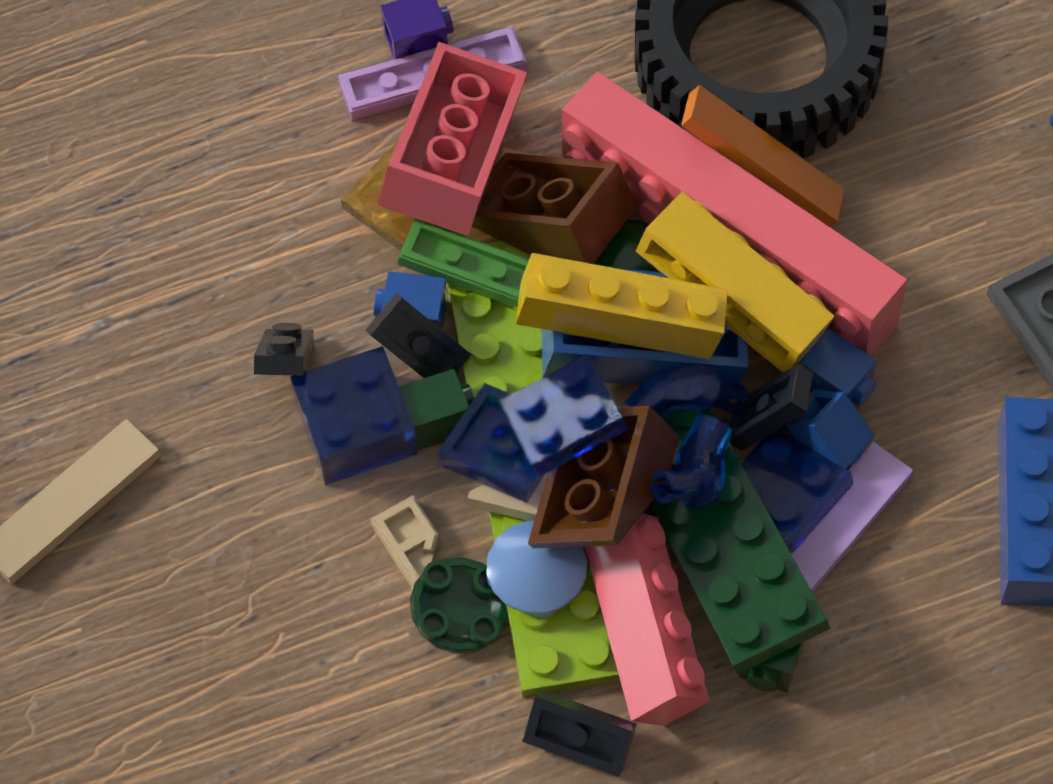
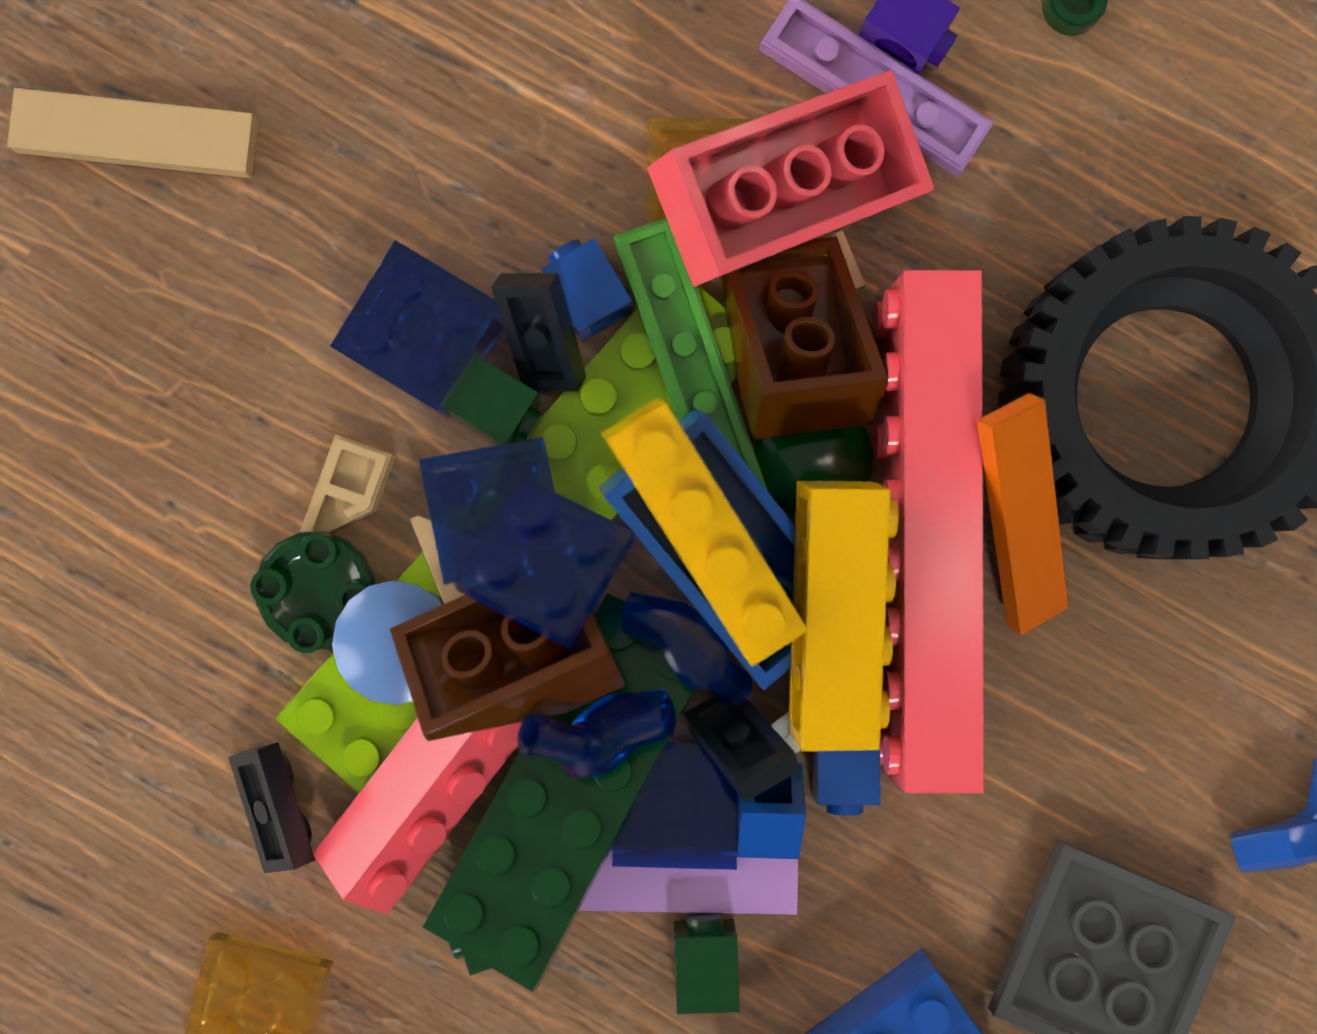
camera: 50 degrees right, 25 degrees up
(284, 350) = (426, 208): black plate -> none
(900, 542) = (706, 964): none -> dark green brick

